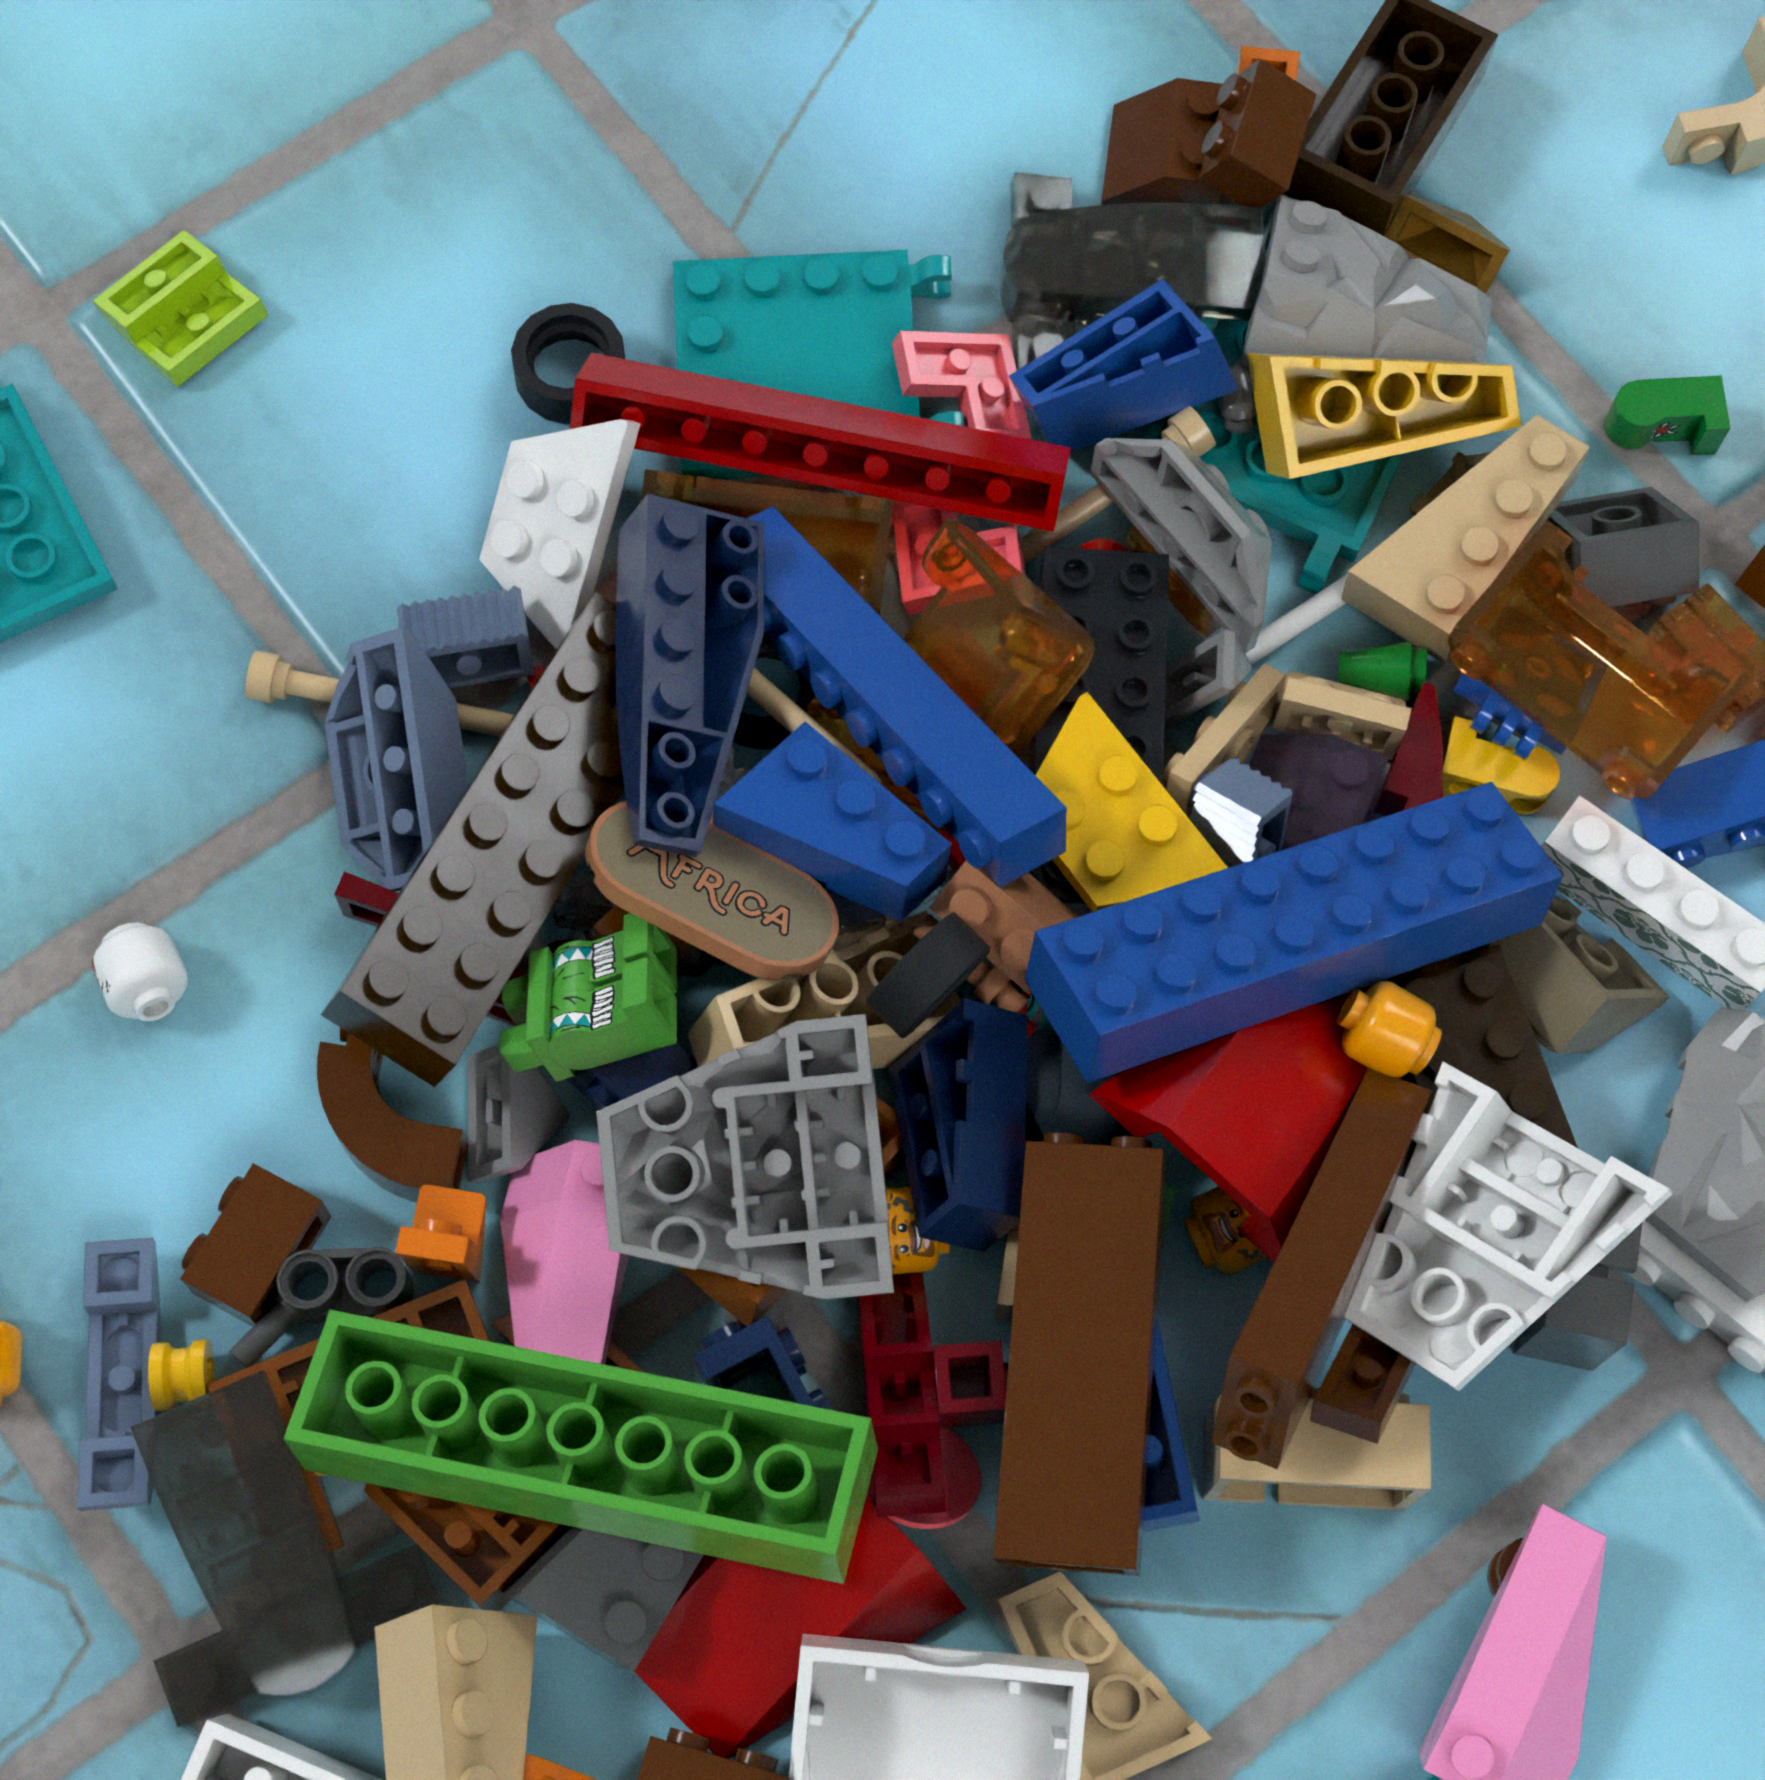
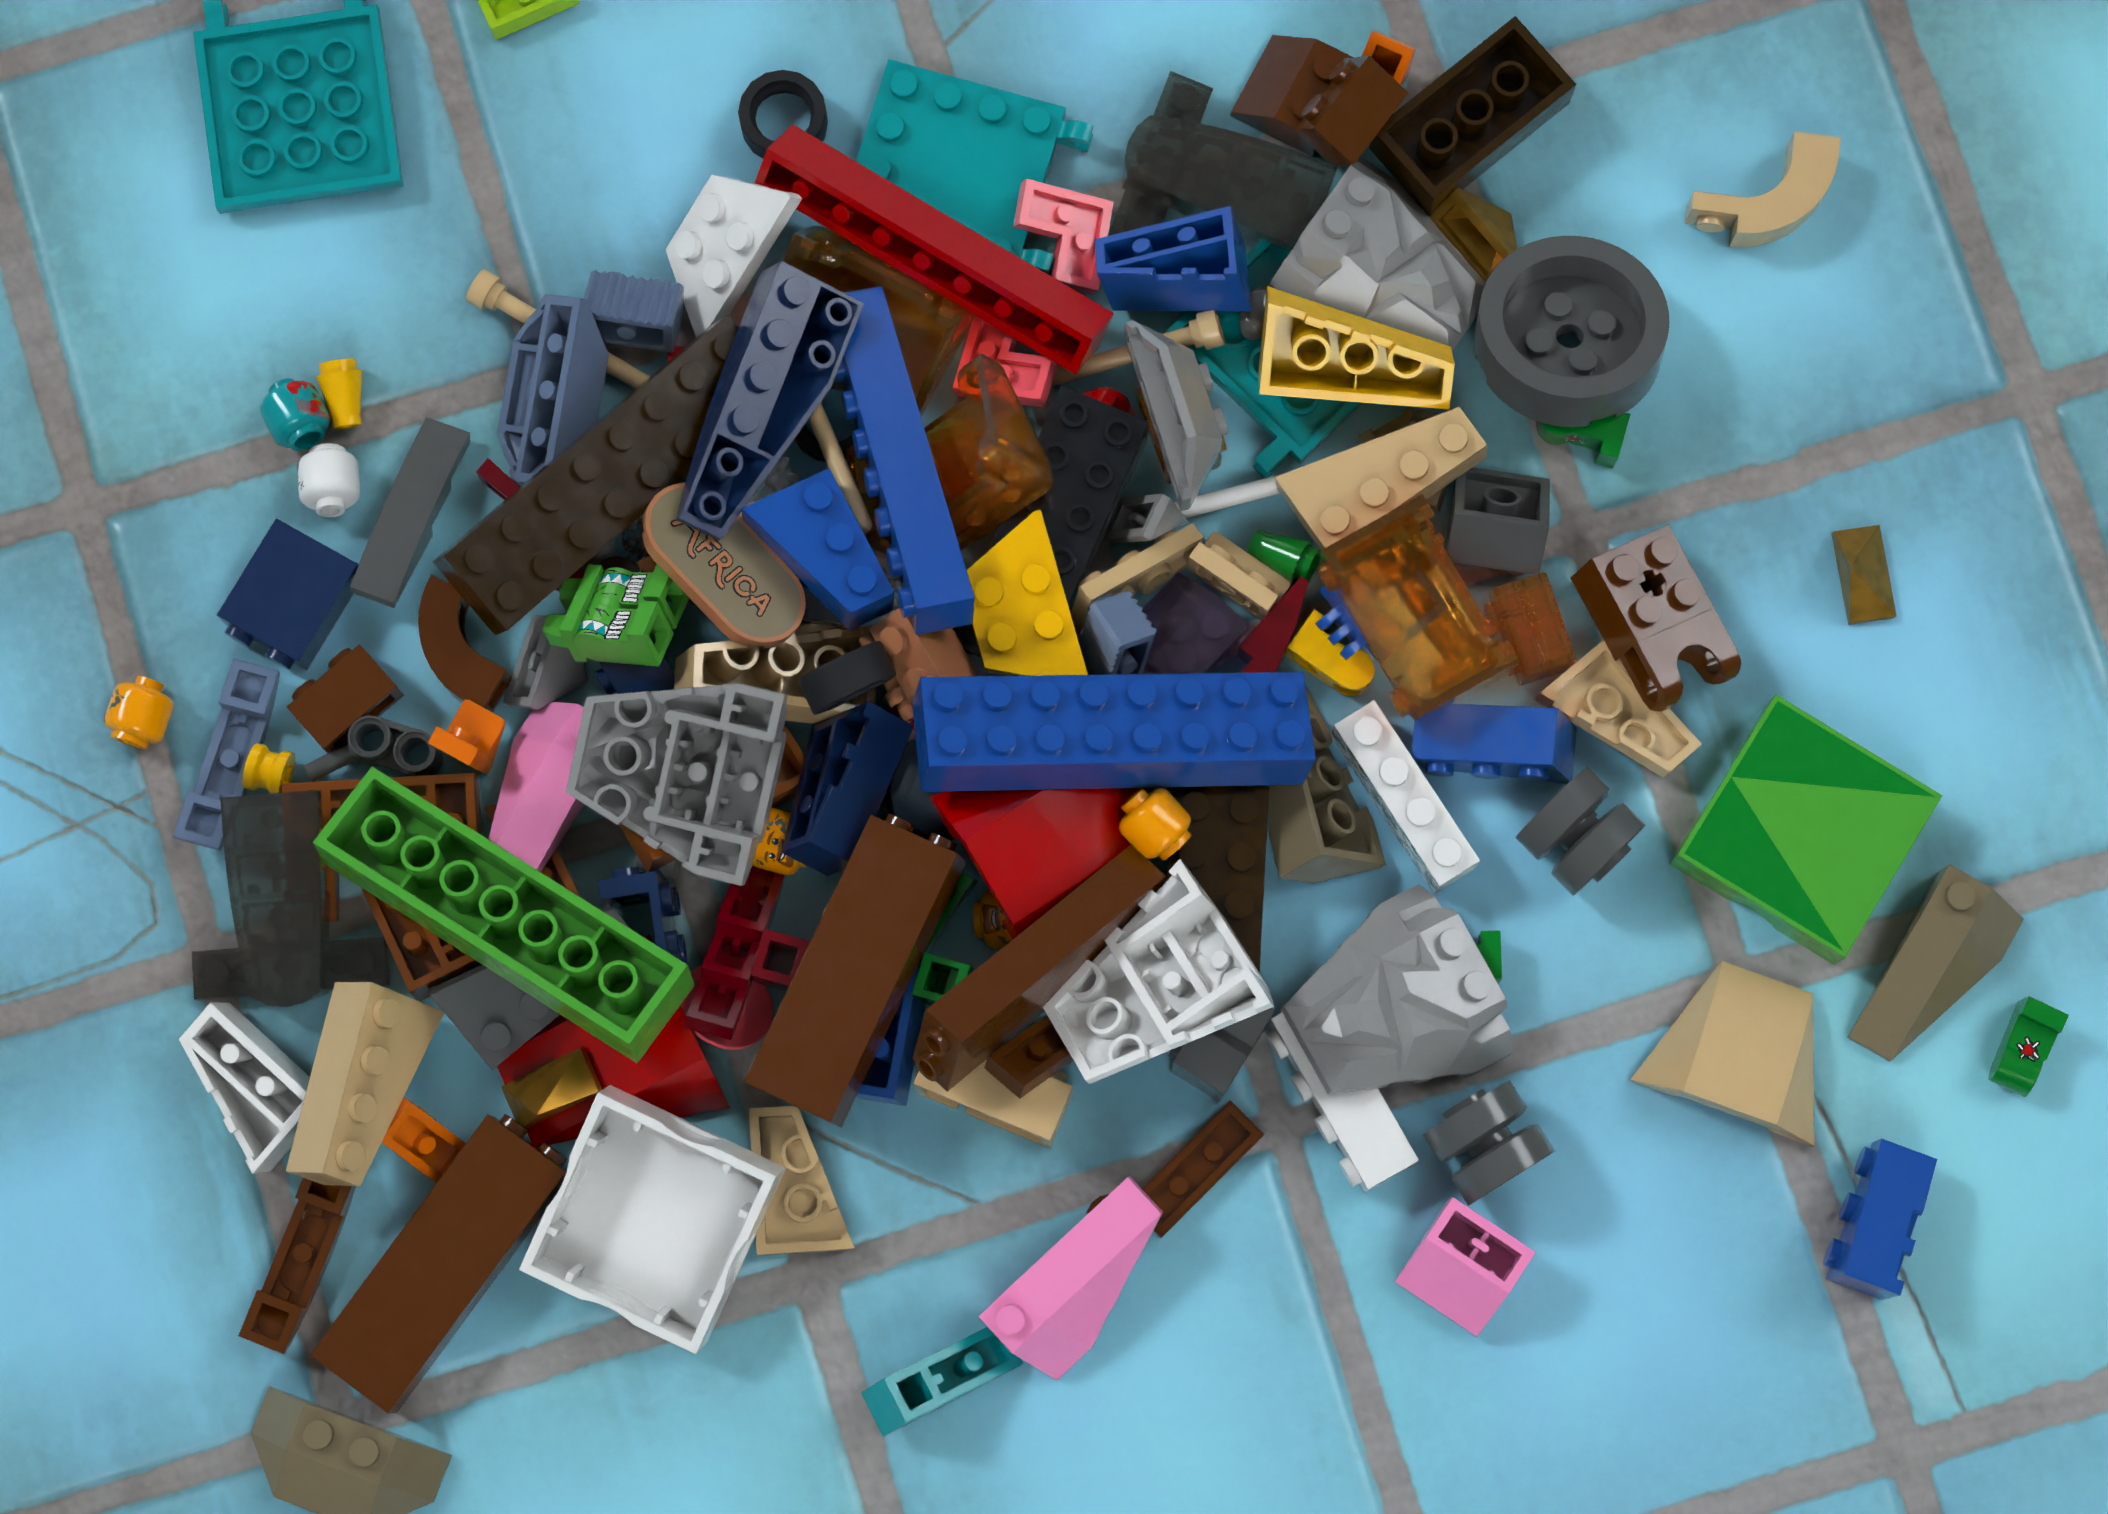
camera: 25 degrees right, 10 degrees up
(67, 904) = (295, 414): none -> teal head
(120, 856) = (342, 391): none -> yellow cone
(136, 1136) = (289, 596): none -> dark blue brick
(262, 979) = (409, 513): none -> dark grey slope
(722, 1668) = (552, 1088): none -> pearl gold slope
(1198, 1335) = (937, 977): none -> green leg
(1610, 1450) = (1201, 1164): none -> reddish brown tile
(1621, 254) = (1561, 289): none -> dark grey brick

